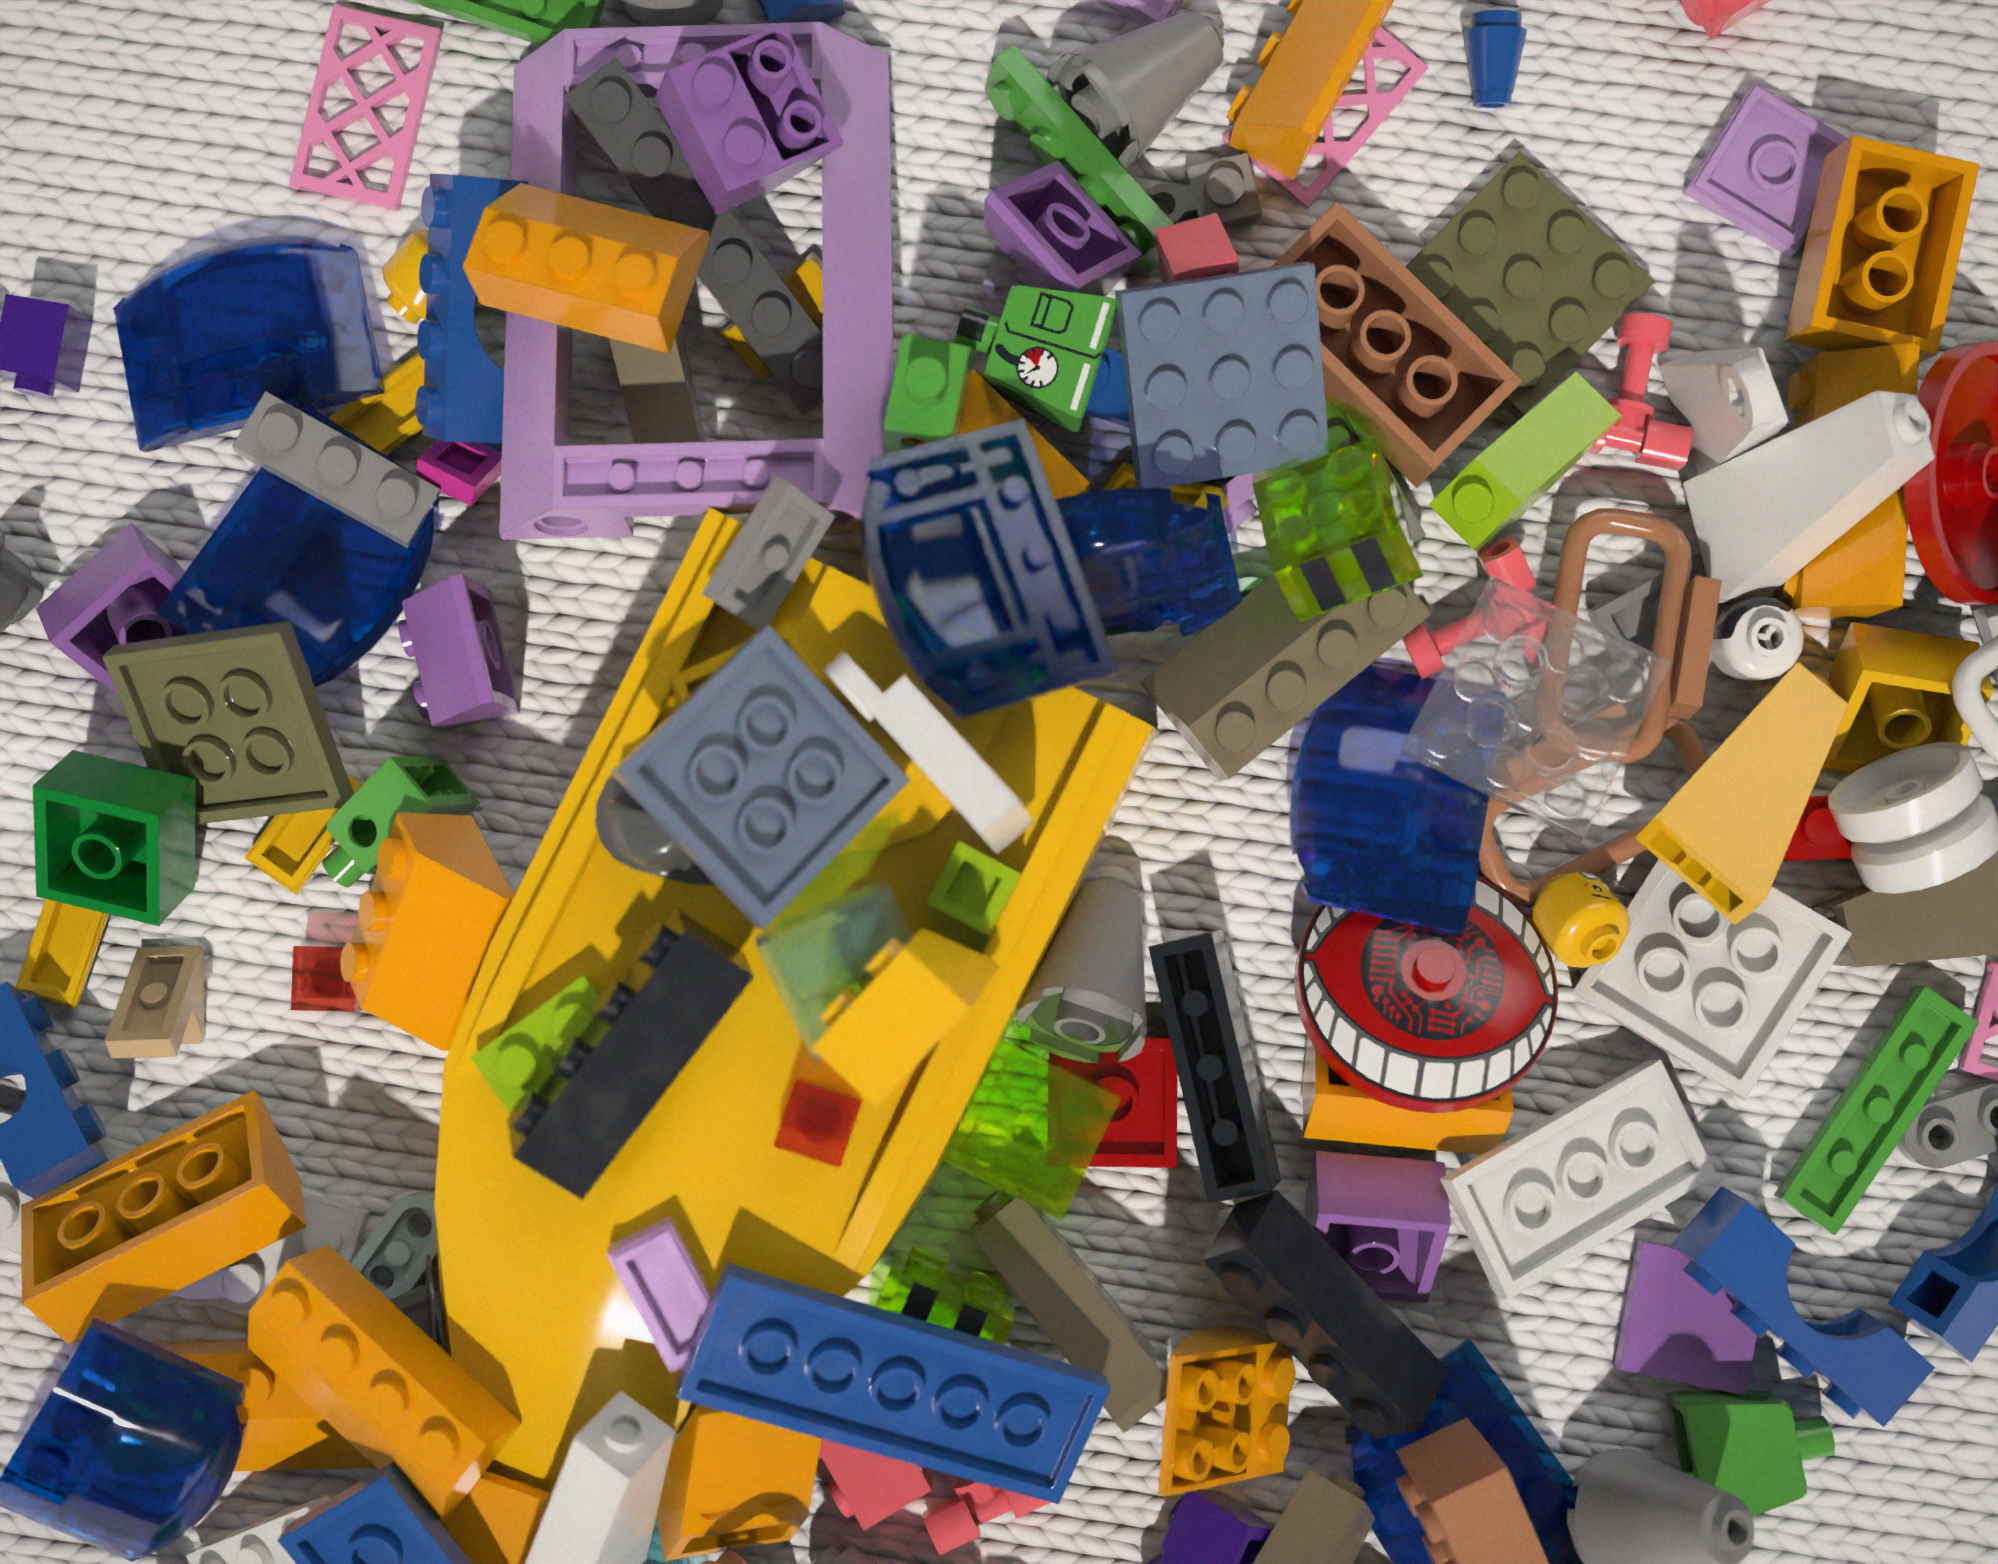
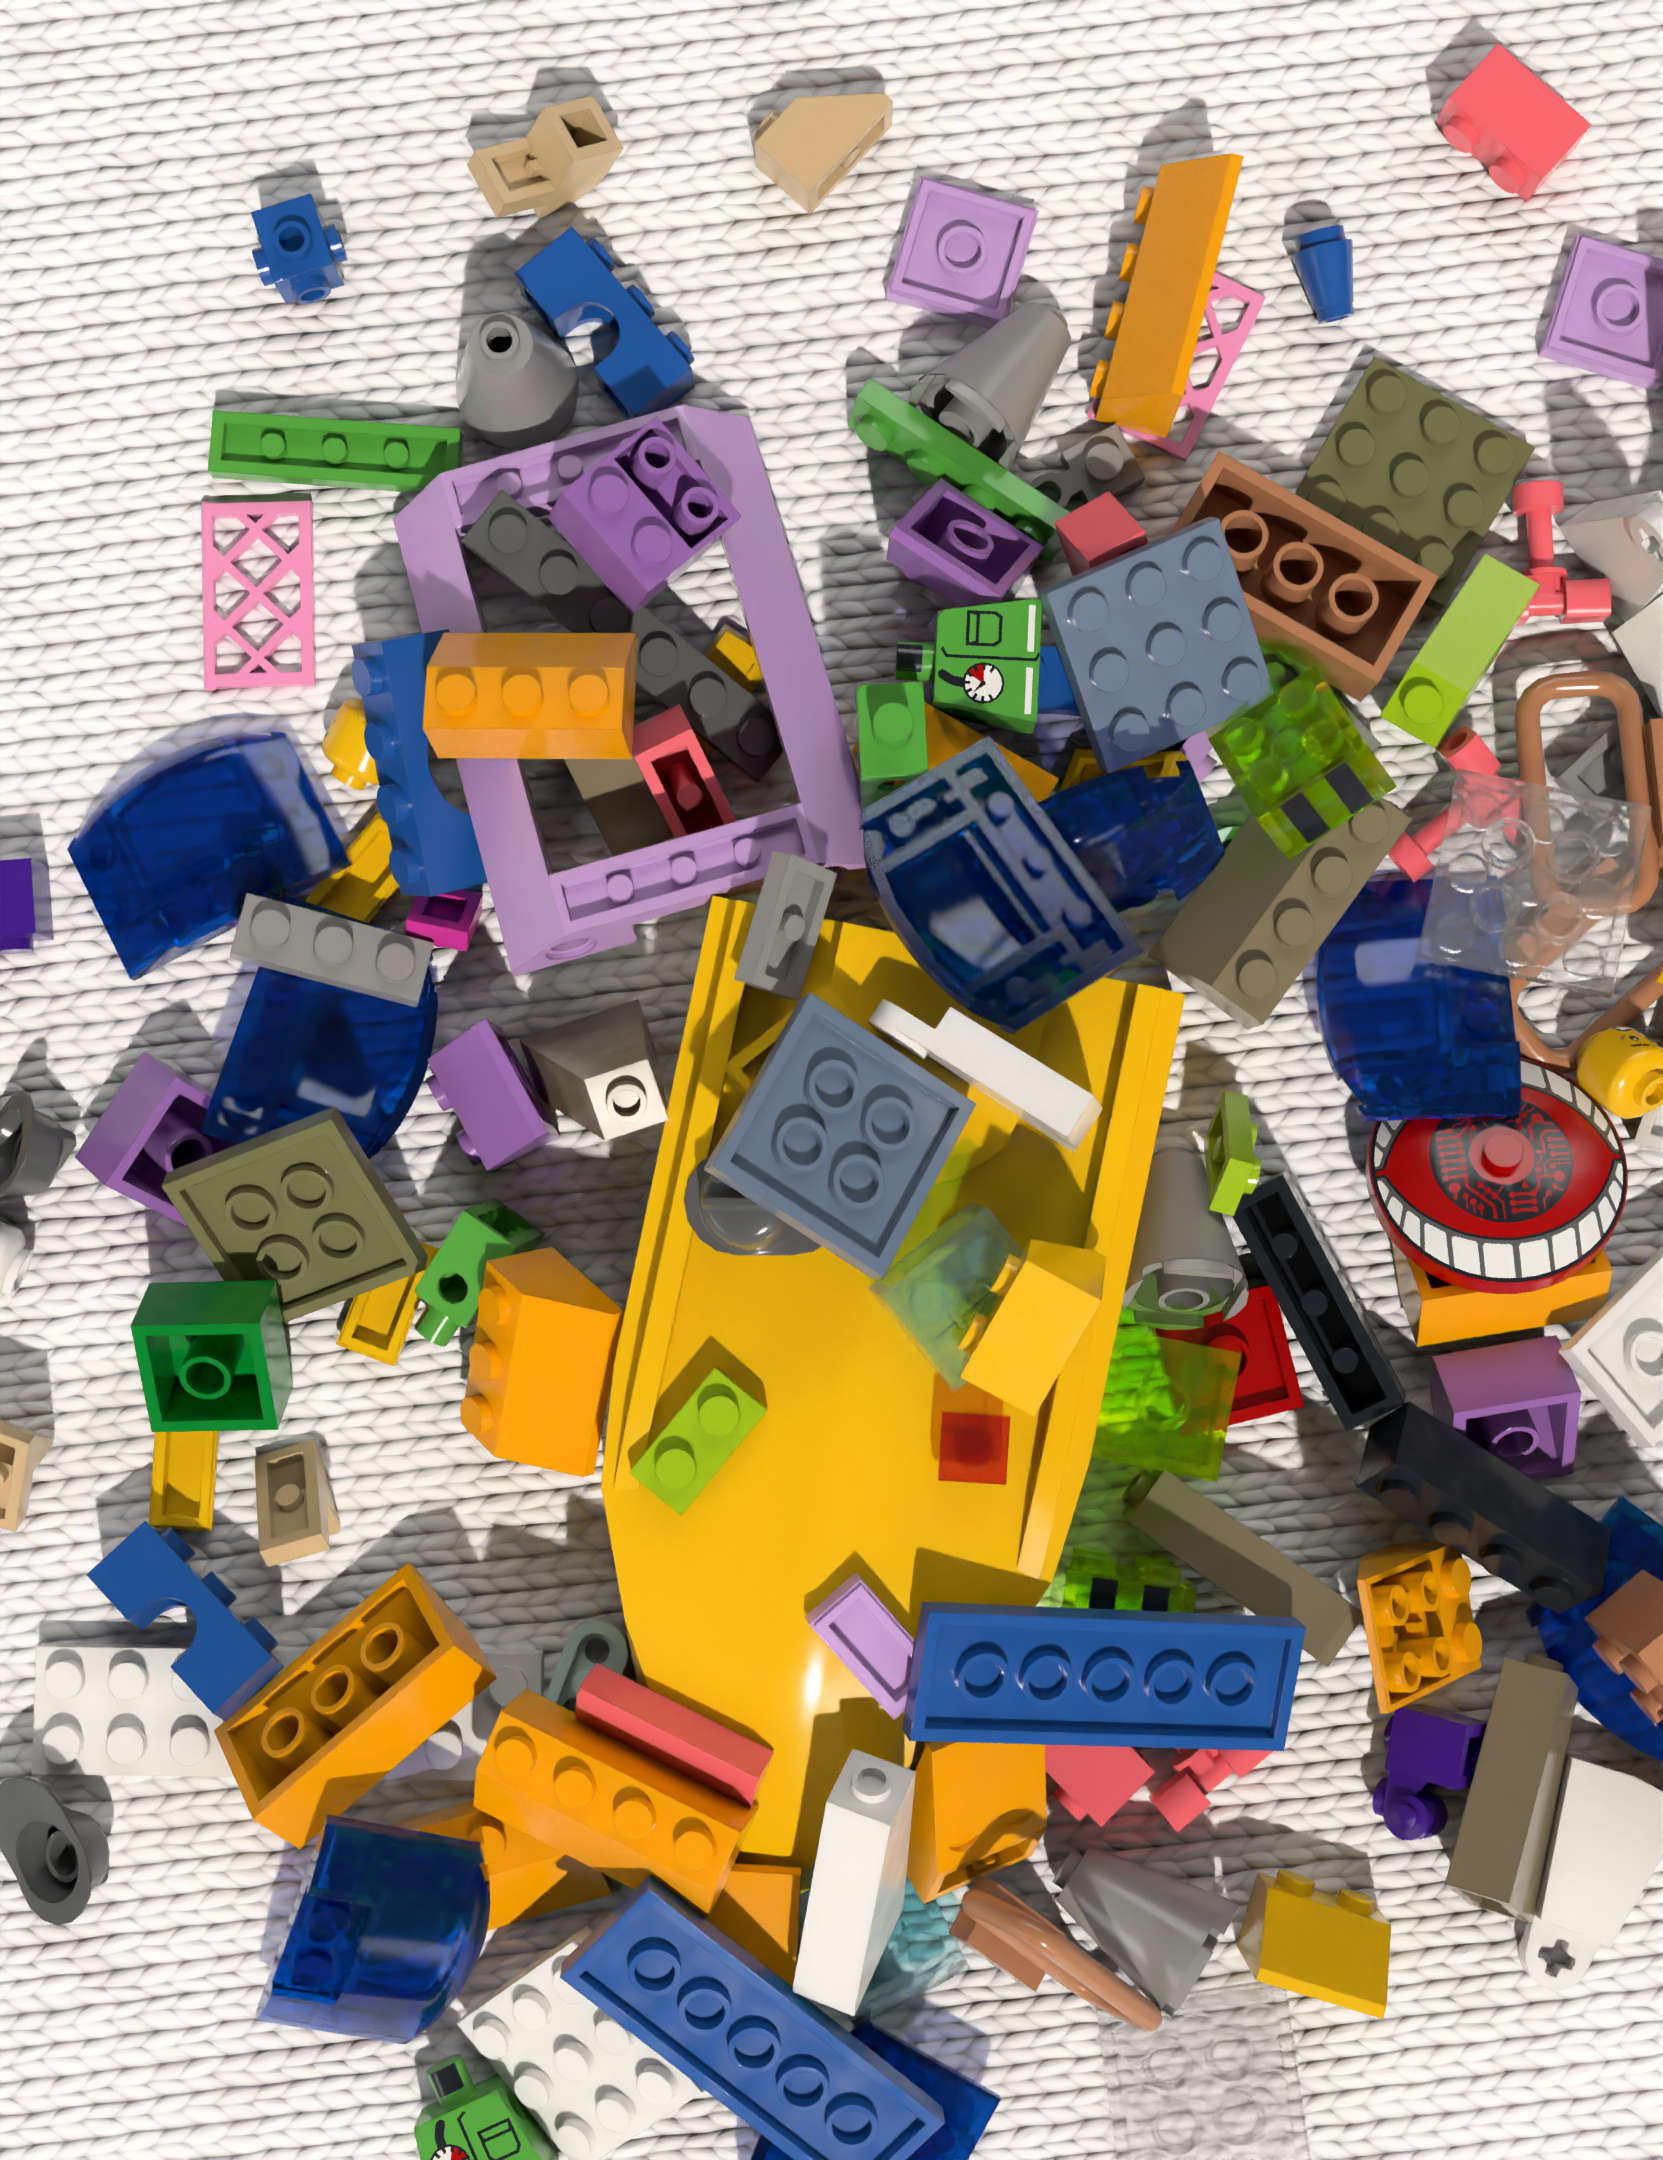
camera: 20 degrees left, 0 degrees up
(319, 981) = (443, 1441): clear red plate -> none
(453, 1327) = (672, 1734): none -> coral slope
(569, 655) = (600, 1071): none -> dark tan slope
(627, 1053) = (781, 1429): black brick -> none
(721, 382) = (679, 774): none -> coral brick
(974, 888) = (1061, 1189): lime plate -> none
(1166, 899) = (1230, 1153): none -> lime plate

